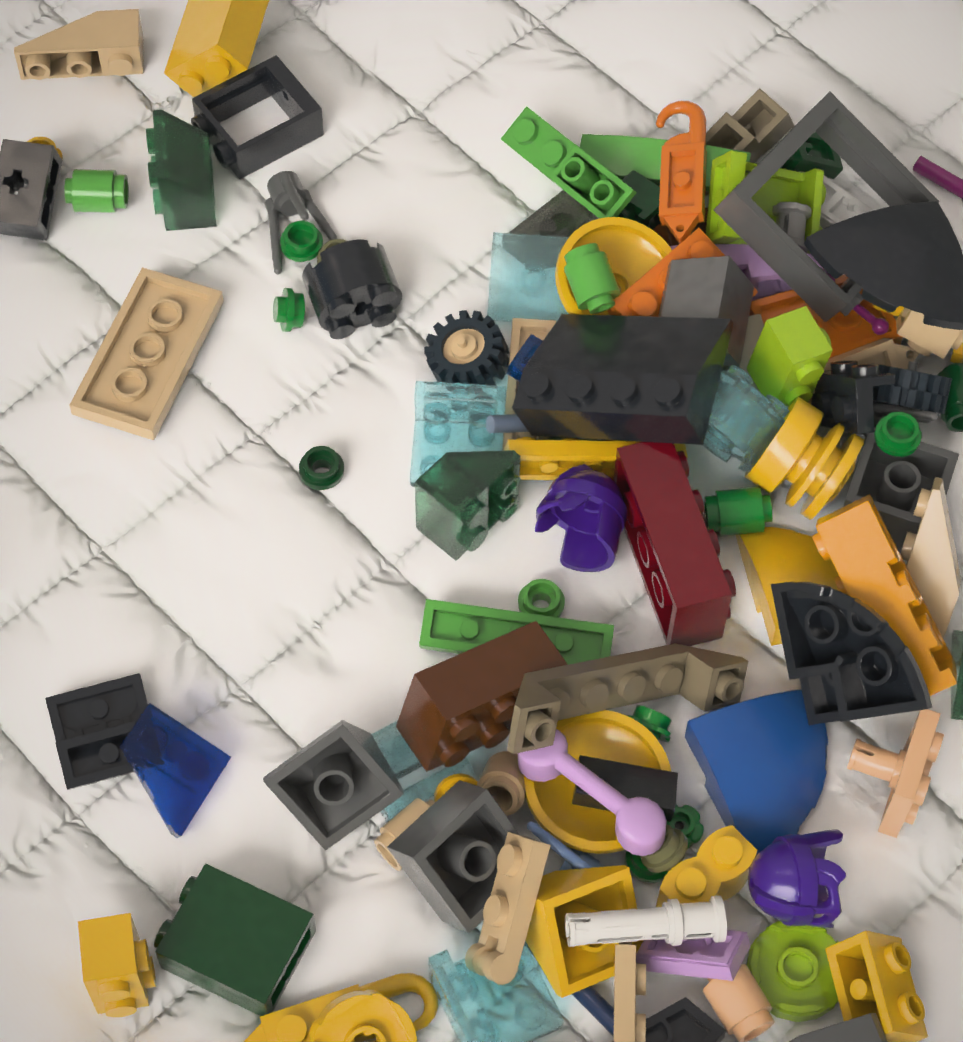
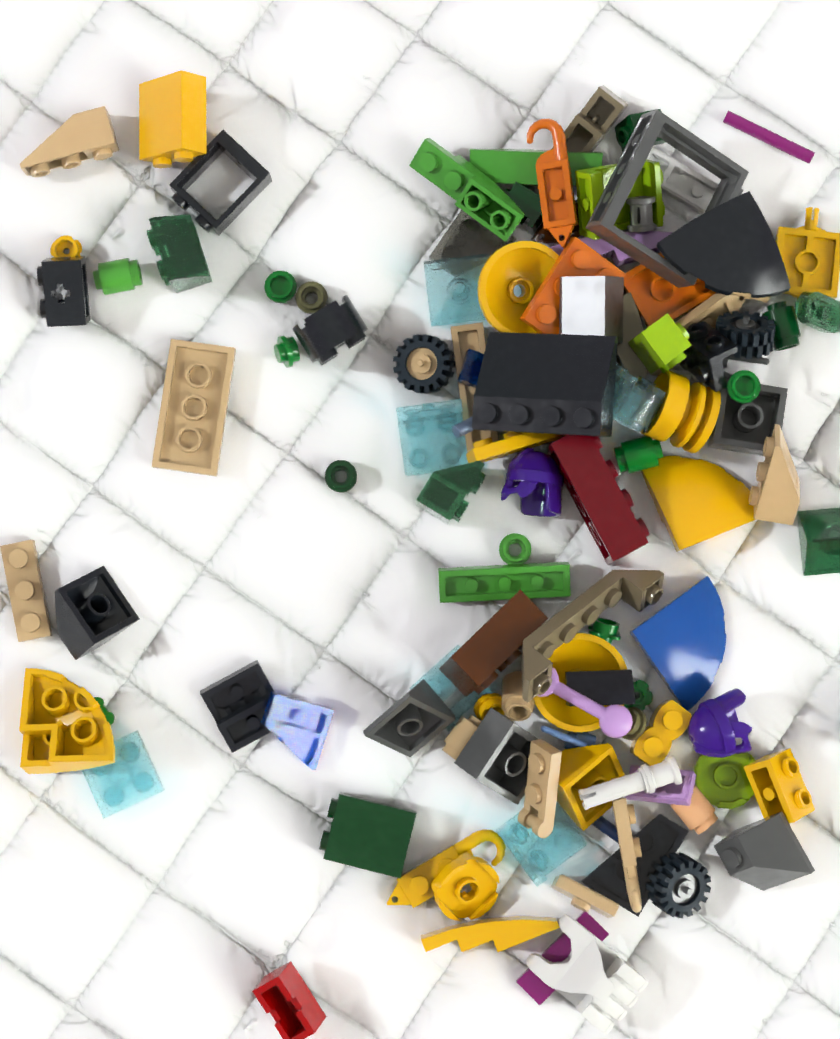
camera: 10 degrees left, 25 degrees up
(115, 965) = (301, 874): yellow brick -> none
(290, 199) = (262, 249): dark grey plant -> none
(591, 278) = (507, 306): bright green brick -> none
(845, 656) = (731, 574): black brick -> none
(878, 576) = (753, 523): light orange wedge -> none
(904, 771) = (777, 635): light nougat plate -> none

